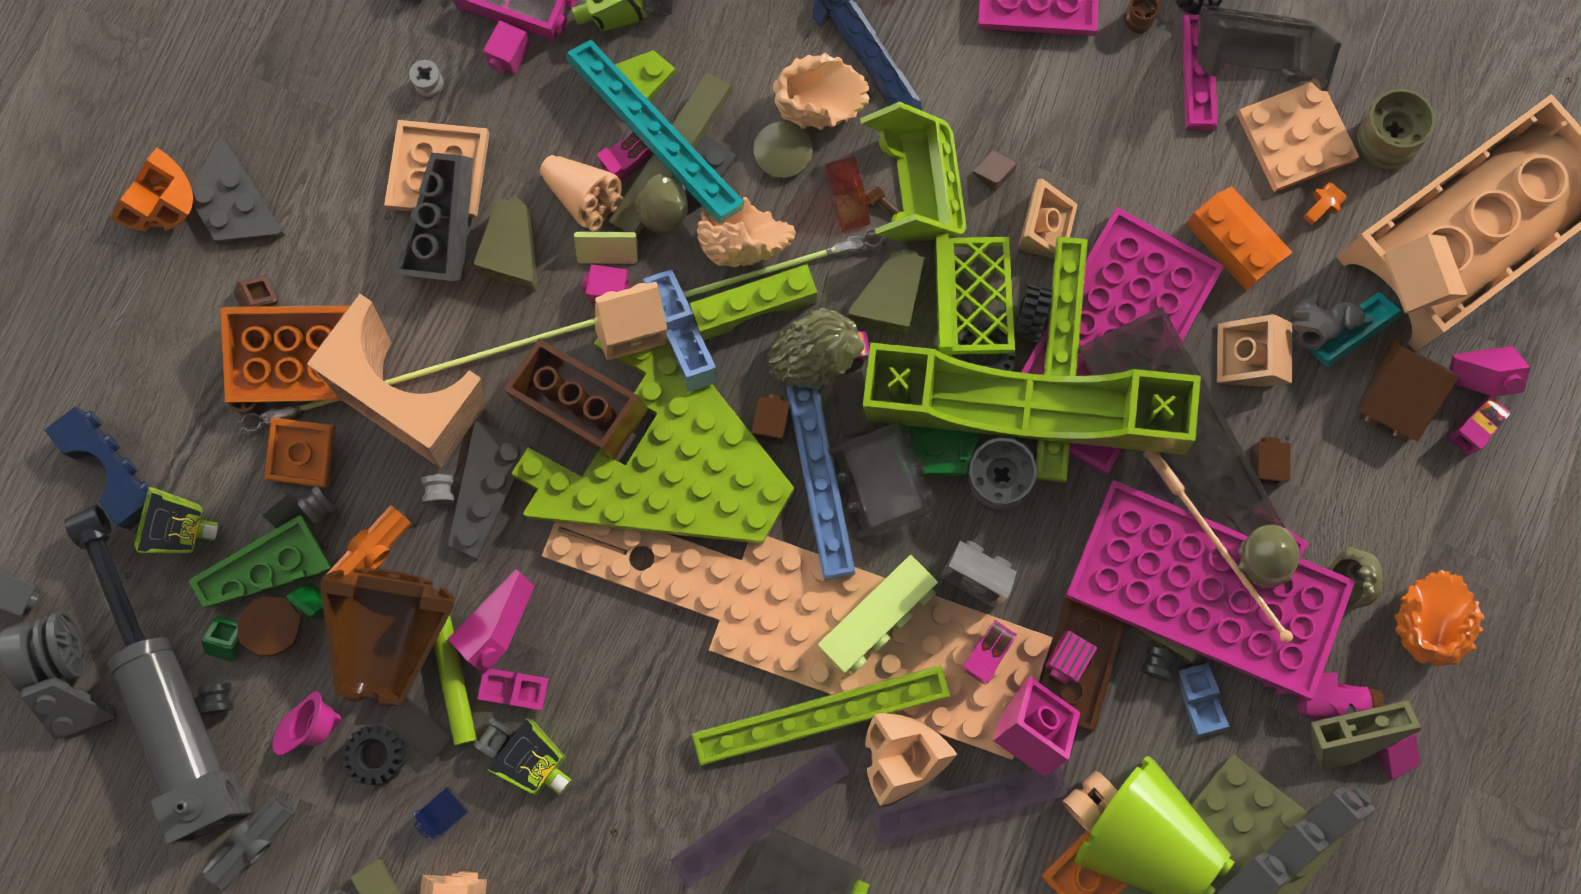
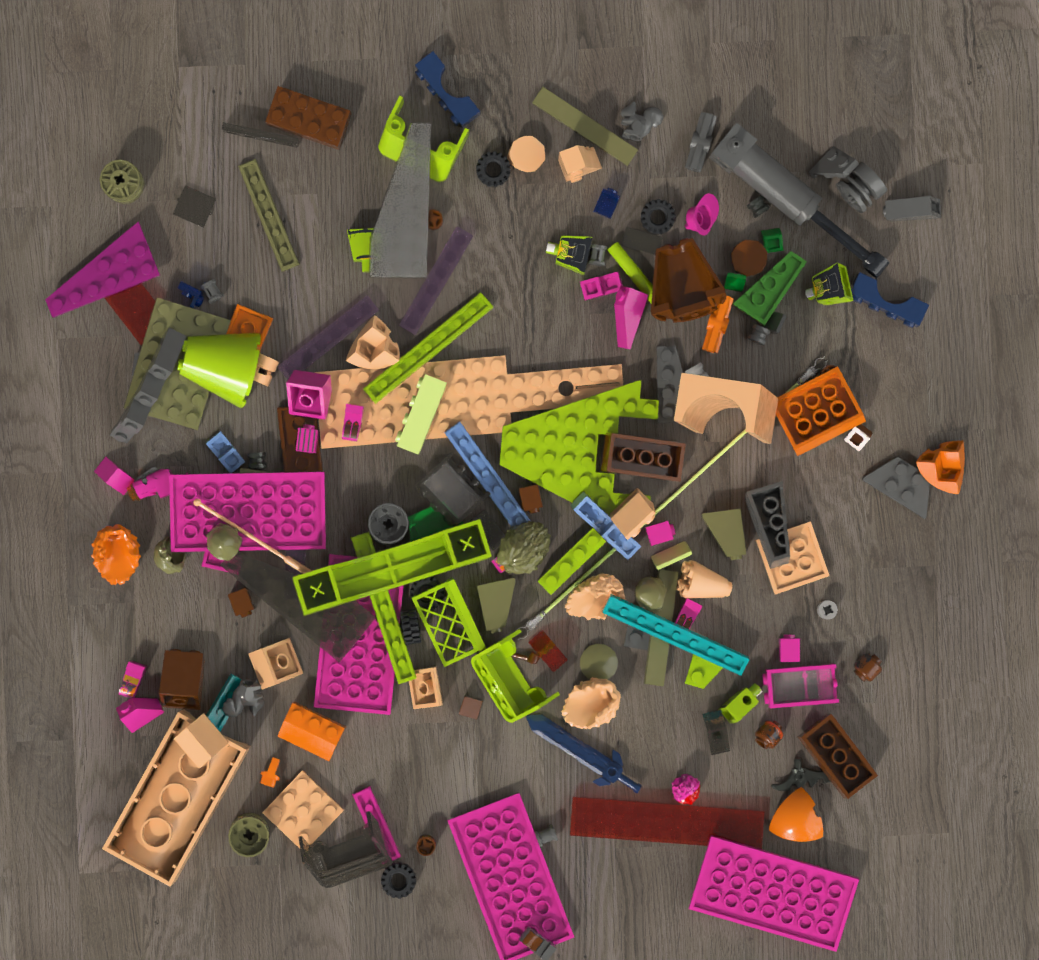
camera: 150 degrees right, 10 degrees up
(299, 452) = (784, 359): orange tile -> none
(979, 574) = (376, 463): light grey slope -> none
(1362, 733) = (134, 470): olive slope -> none

